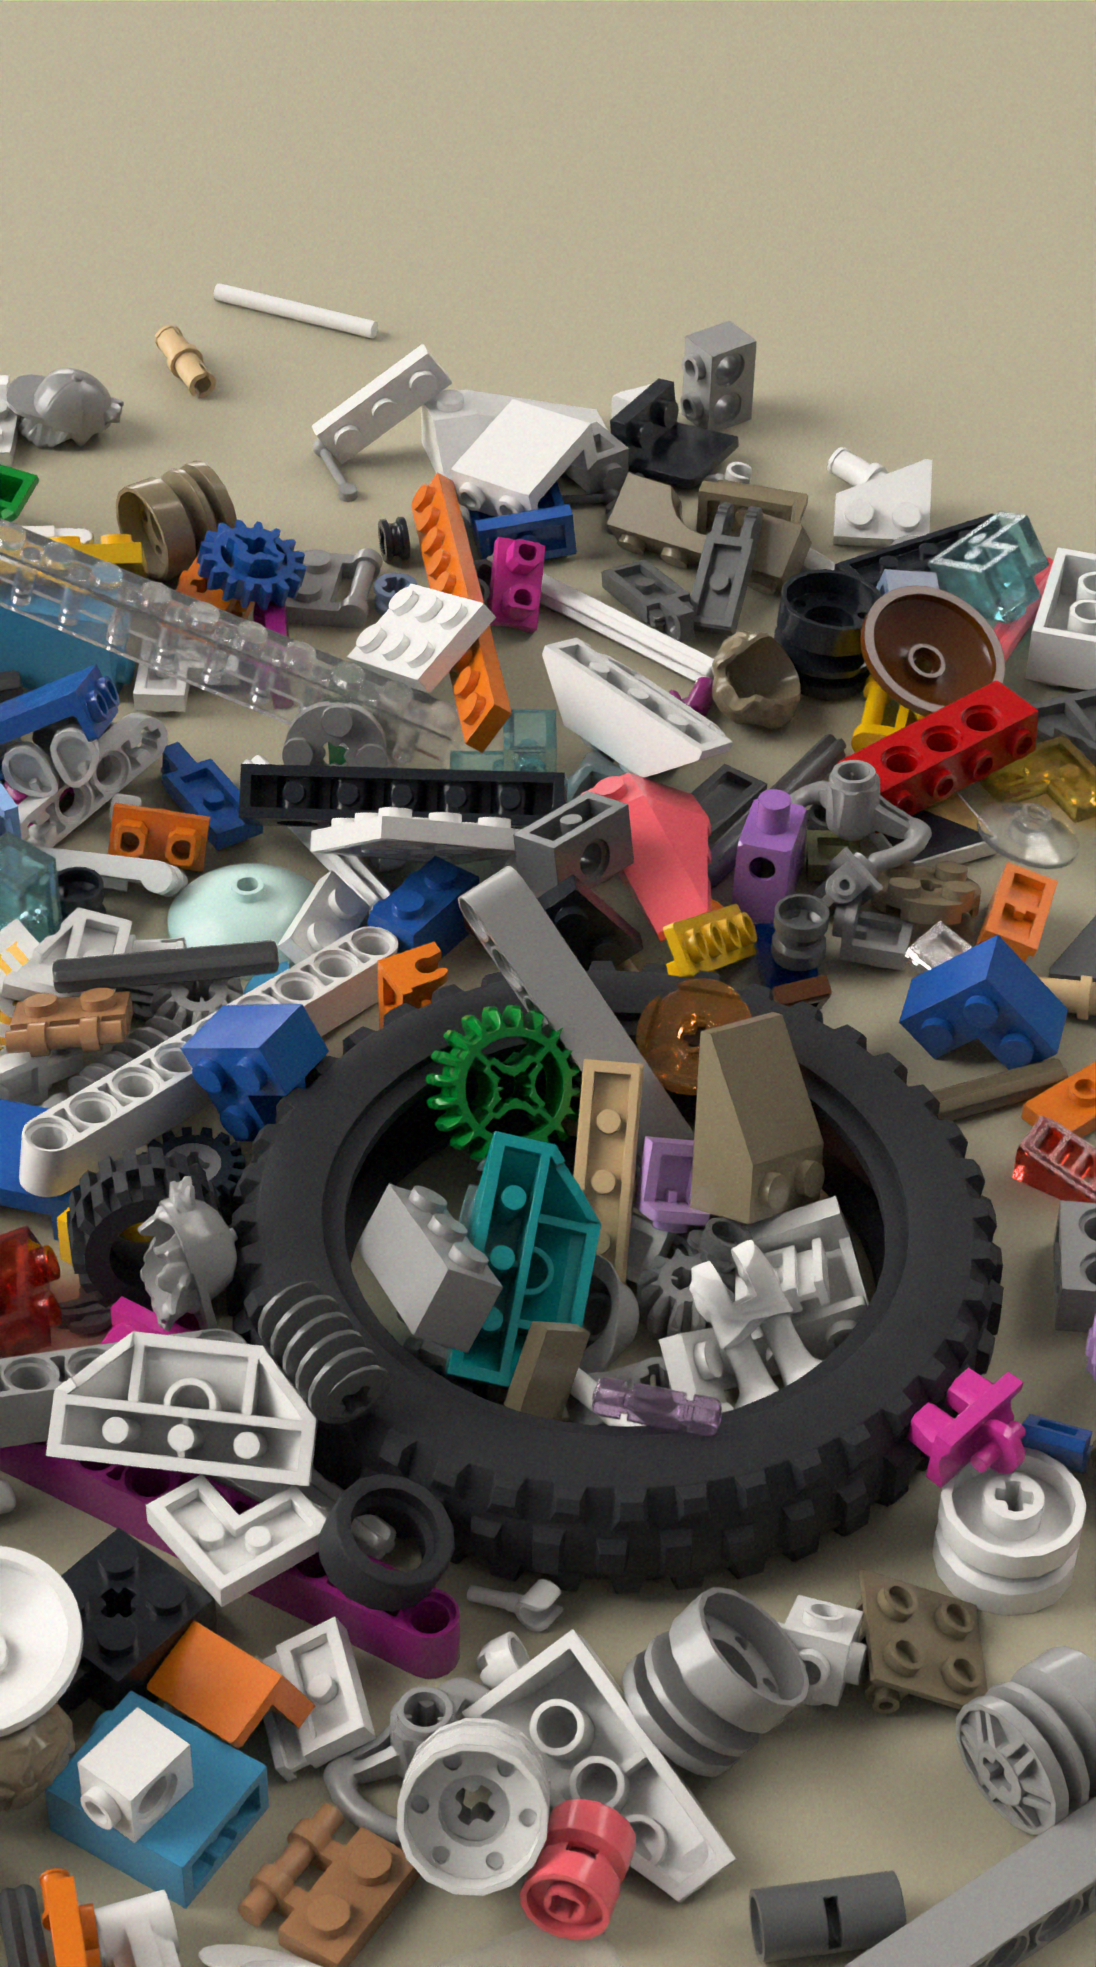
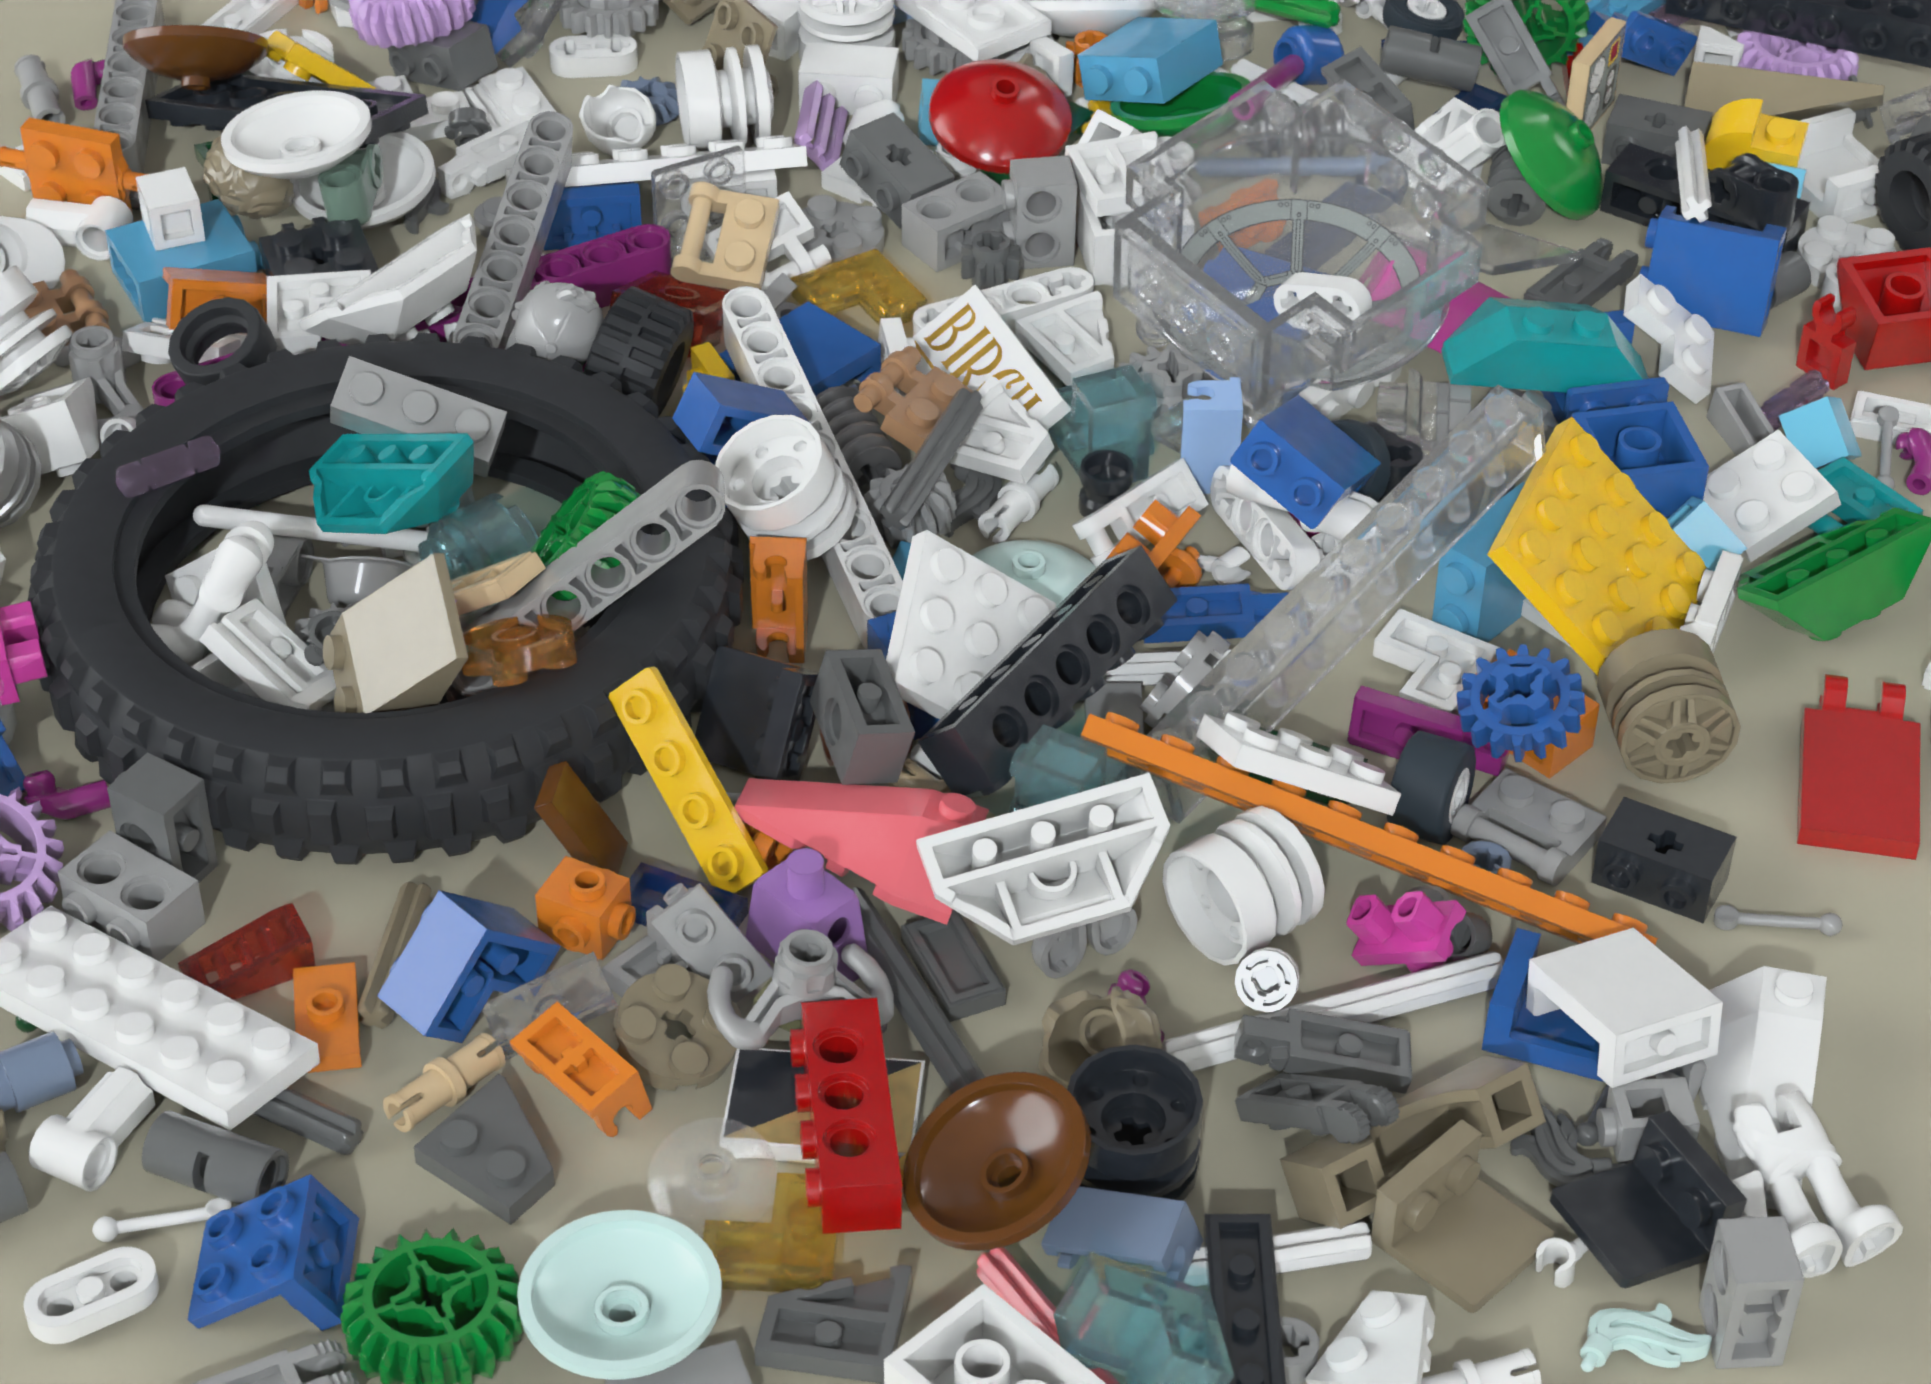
camera: 120 degrees right, 0 degrees up
(112, 462) = (1860, 774): none -> red tile
(322, 1354) = (357, 312): dark grey piece -> none
(330, 508) = (1663, 859): none -> black brick
(338, 973) = (786, 483): none -> white wheel
(341, 608) = (1433, 783): none -> black wheel
(382, 404) = (1816, 932): white plate -> none
(394, 539) = (1588, 882): black bush -> none
(521, 638) = (1243, 885): none -> white wheel
(547, 1369) = (300, 483): dark tan tile -> none
(592, 391) = (1804, 1151): none -> white piece
(617, 632) = (1273, 972): none -> white wheel
(760, 444) = (1643, 1334): none -> light aqua piece
(800, 932) = (673, 865): dark grey wheel -> none
(862, 983) = (585, 907): none -> orange brick
(1030, 1400) = (62, 802): none -> magenta arm
(1031, 1251) = (165, 814): none -> dark grey brick

